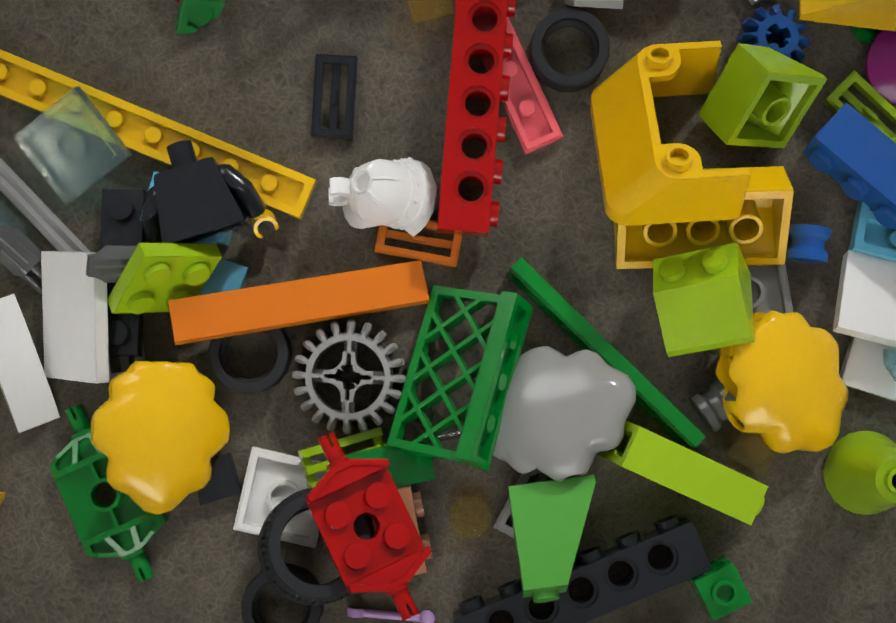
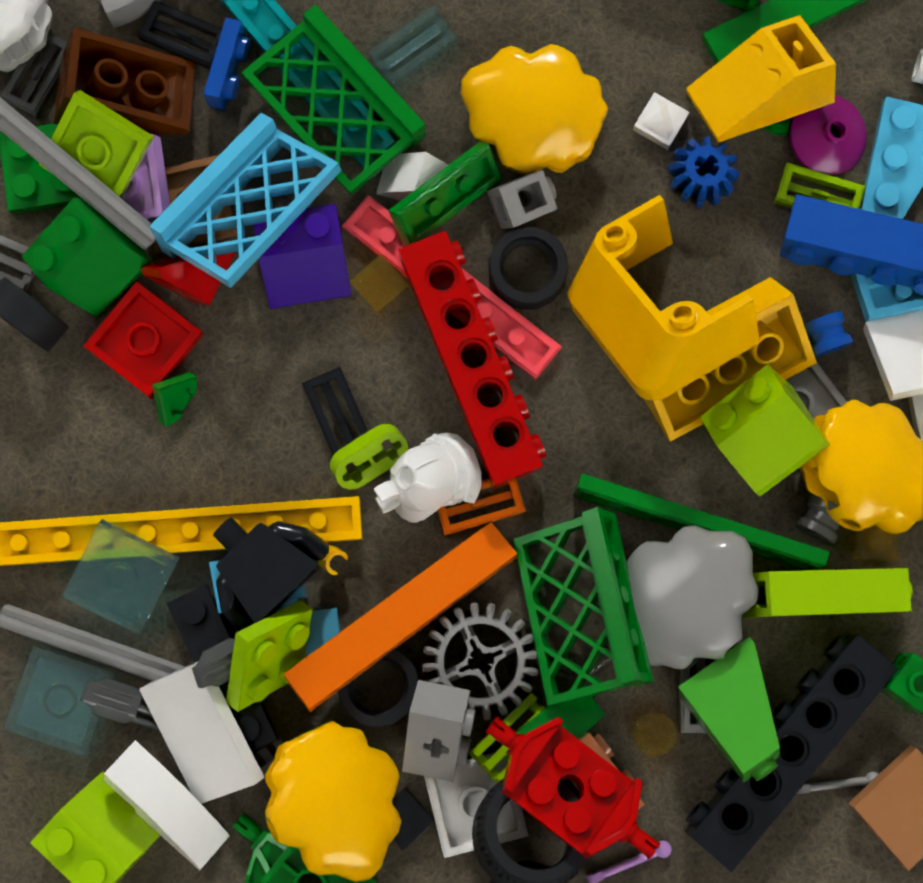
camera: 30 degrees left, 5 degrees down
(279, 417) = (436, 731): none -> light grey brick
(341, 148) = (368, 456): none -> lime beam
(760, 97) = (719, 227): lime slope -> none

